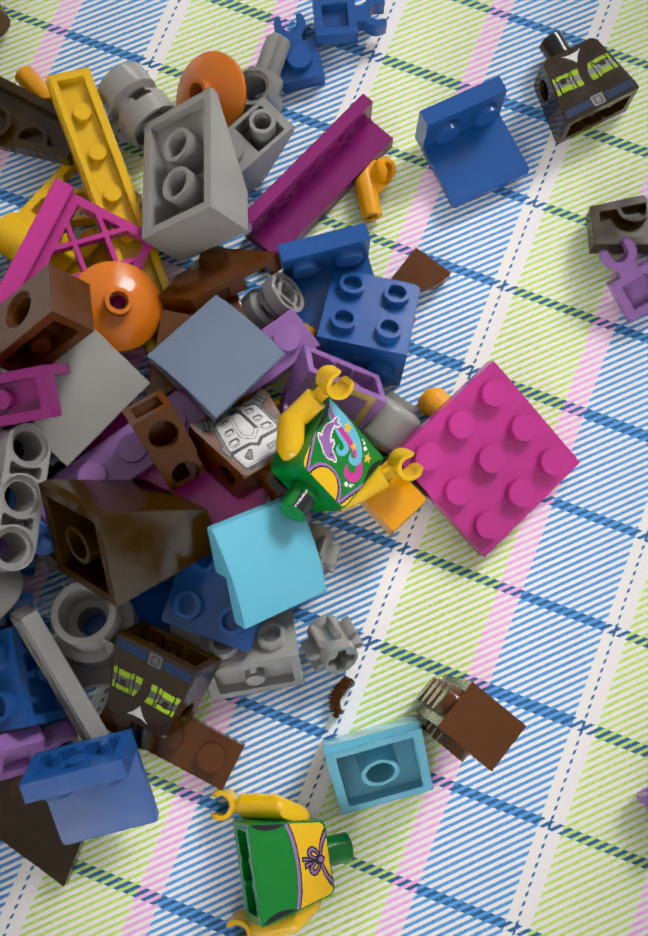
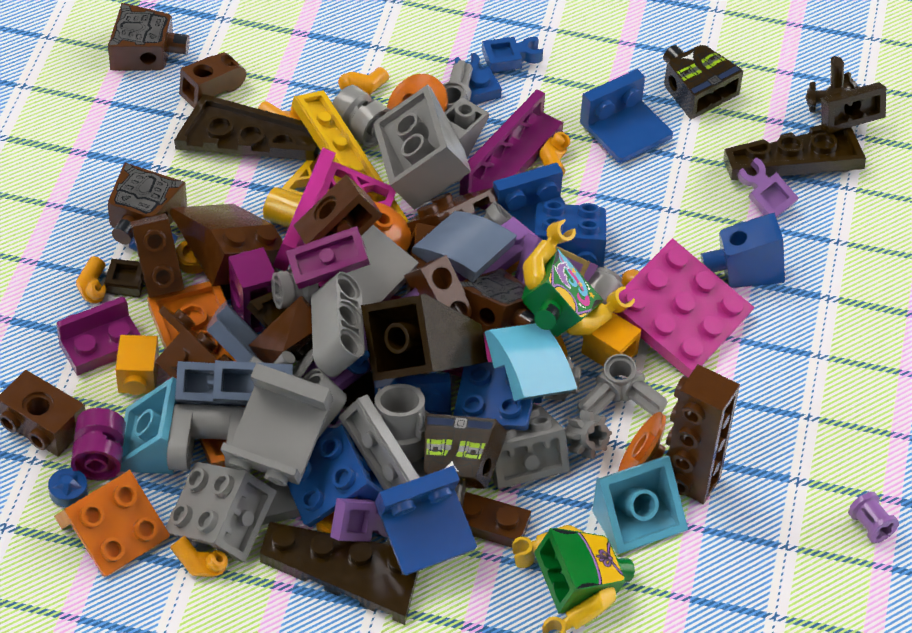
camera: 10 degrees left, 30 degrees down
(154, 49) = (367, 83): none -> light orange arm
(338, 694) = (602, 470): reddish brown leg -> none
(395, 681) = (646, 443): none -> orange dish
(405, 579) = (631, 388): none -> light grey axle
(422, 271) = (612, 203): reddish brown tile -> none
(605, 380) = (749, 253): none -> blue torso

